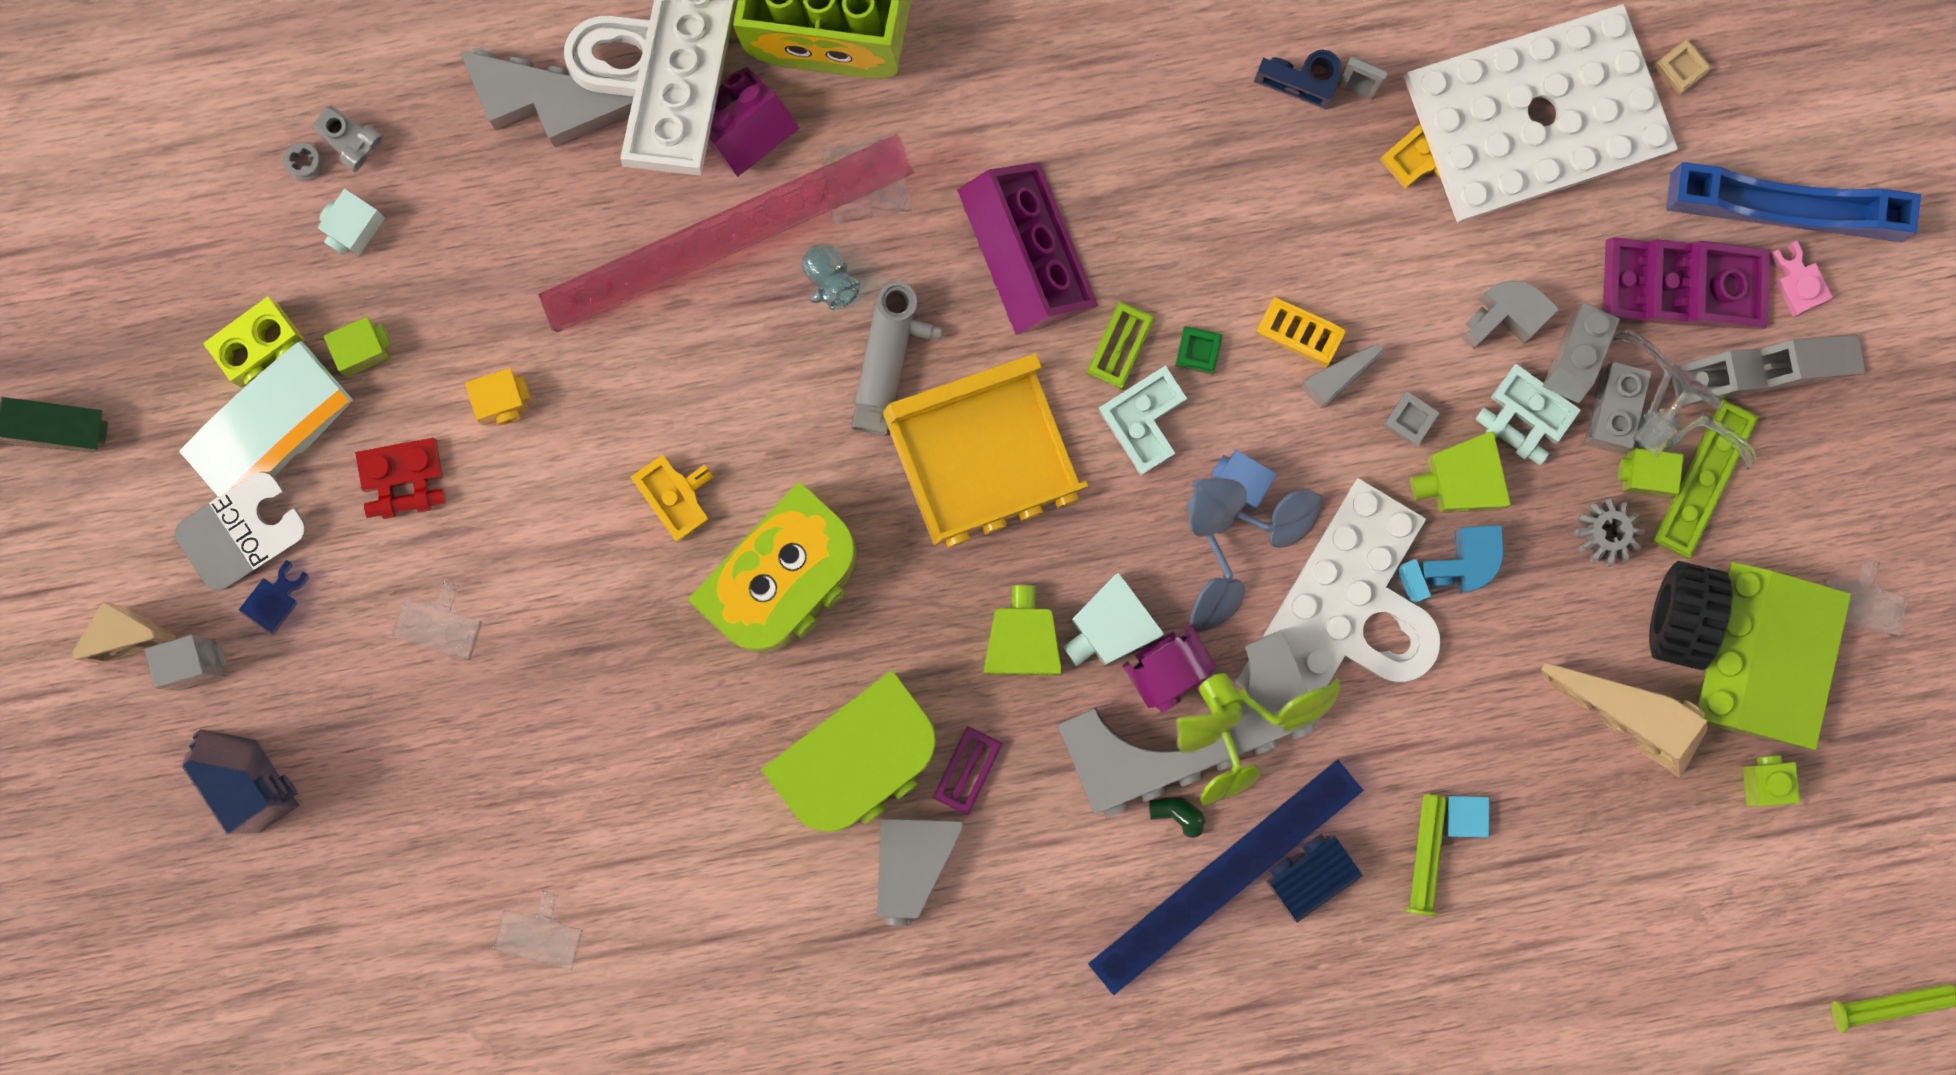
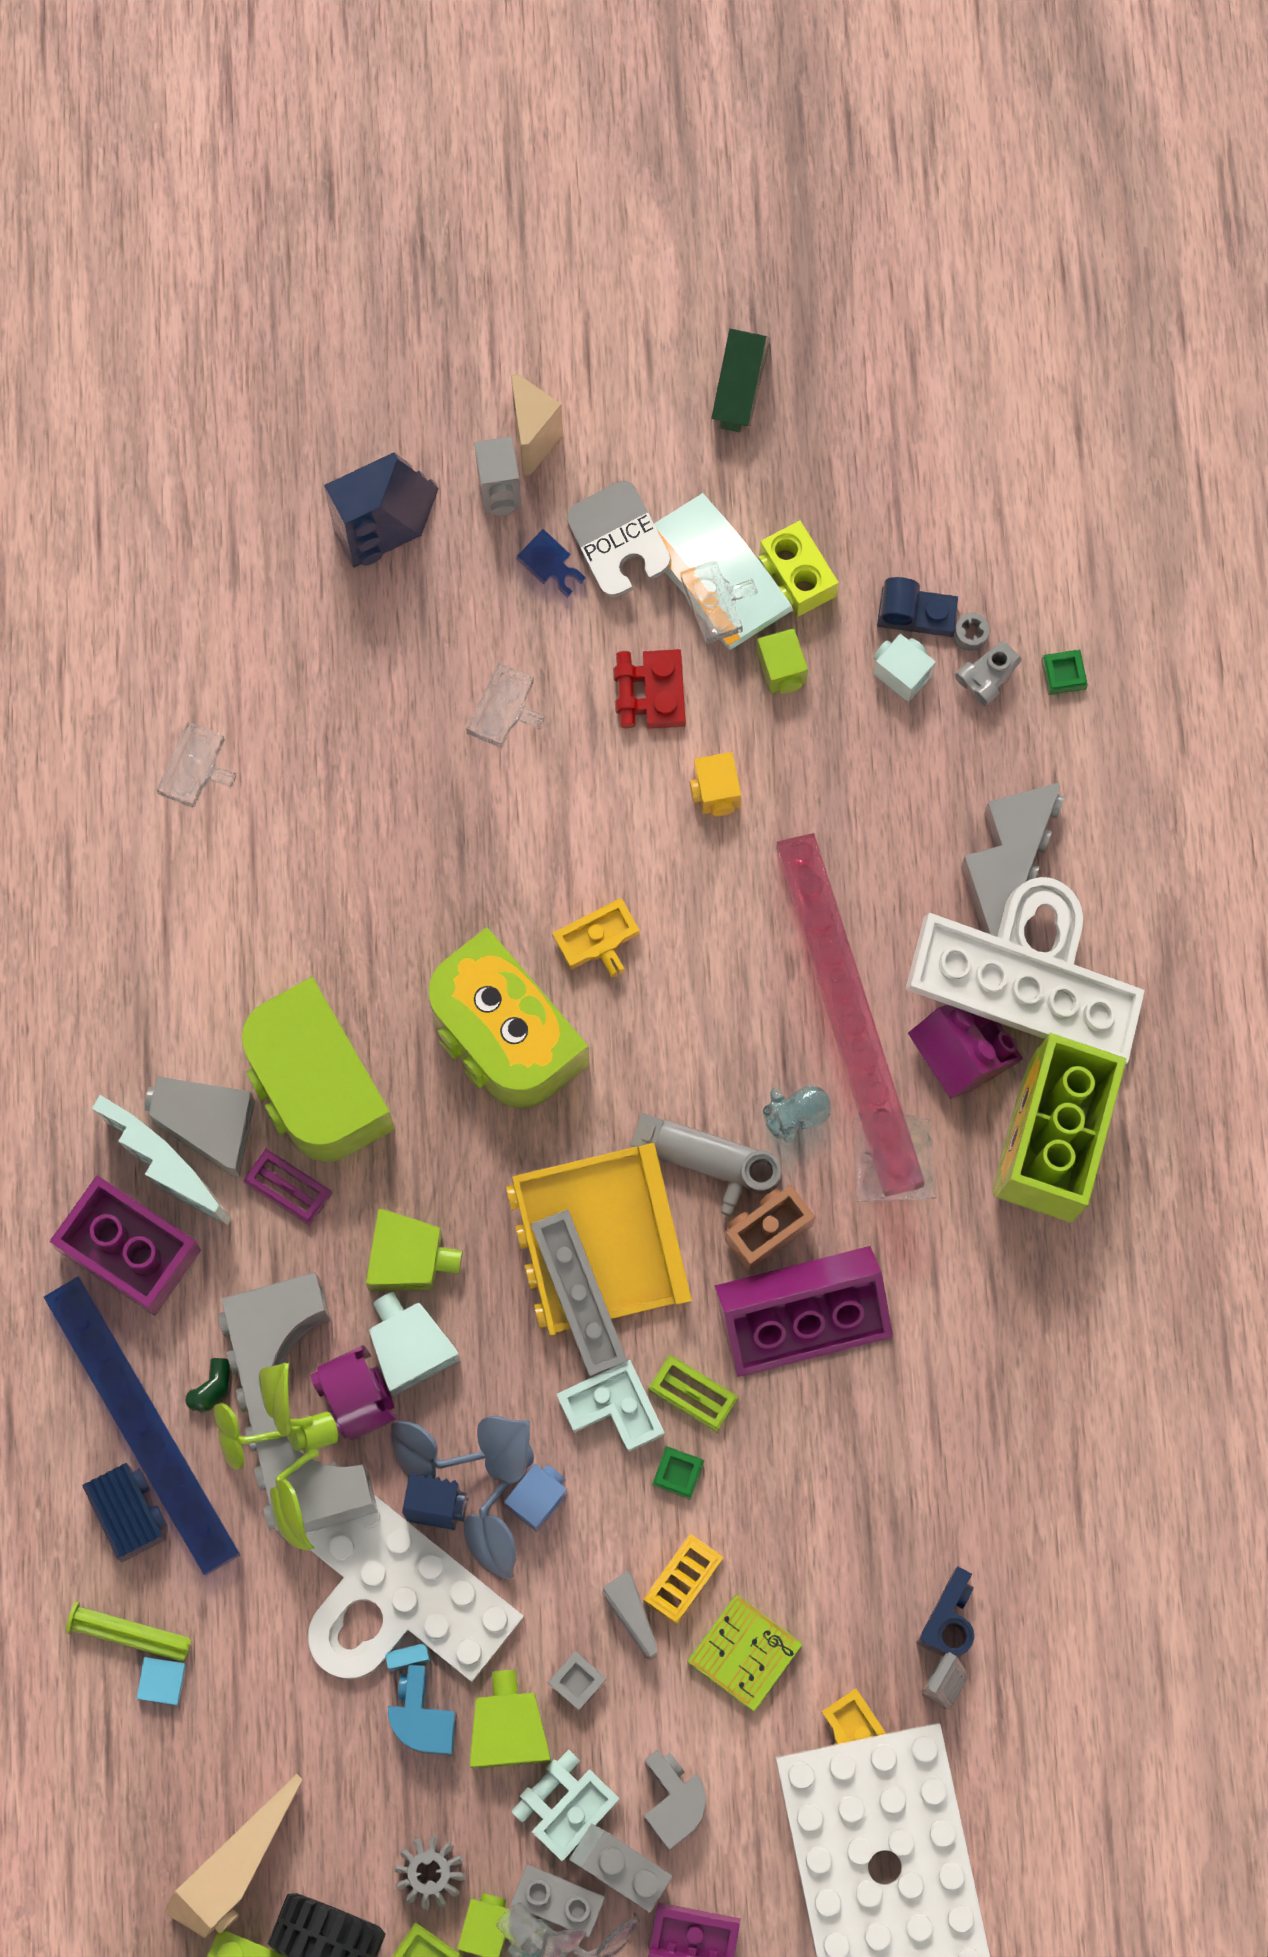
camera: 95 degrees right, 10 degrees down
(284, 227) = (914, 610): none -> dark blue plate
(303, 417) = (715, 600): none -> clear plate
(336, 64) = (1064, 672): none -> green tile
(953, 287) = (768, 1228): none -> nougat brick
(972, 883) = (166, 1167): none -> light aqua slope
(1041, 464) = (578, 1292): none -> light grey plate
(1053, 921) = (125, 1245): none -> magenta brick
(1267, 574) = (434, 1502): none -> dark blue brick
(1361, 266) = (744, 1653): none -> lime tile

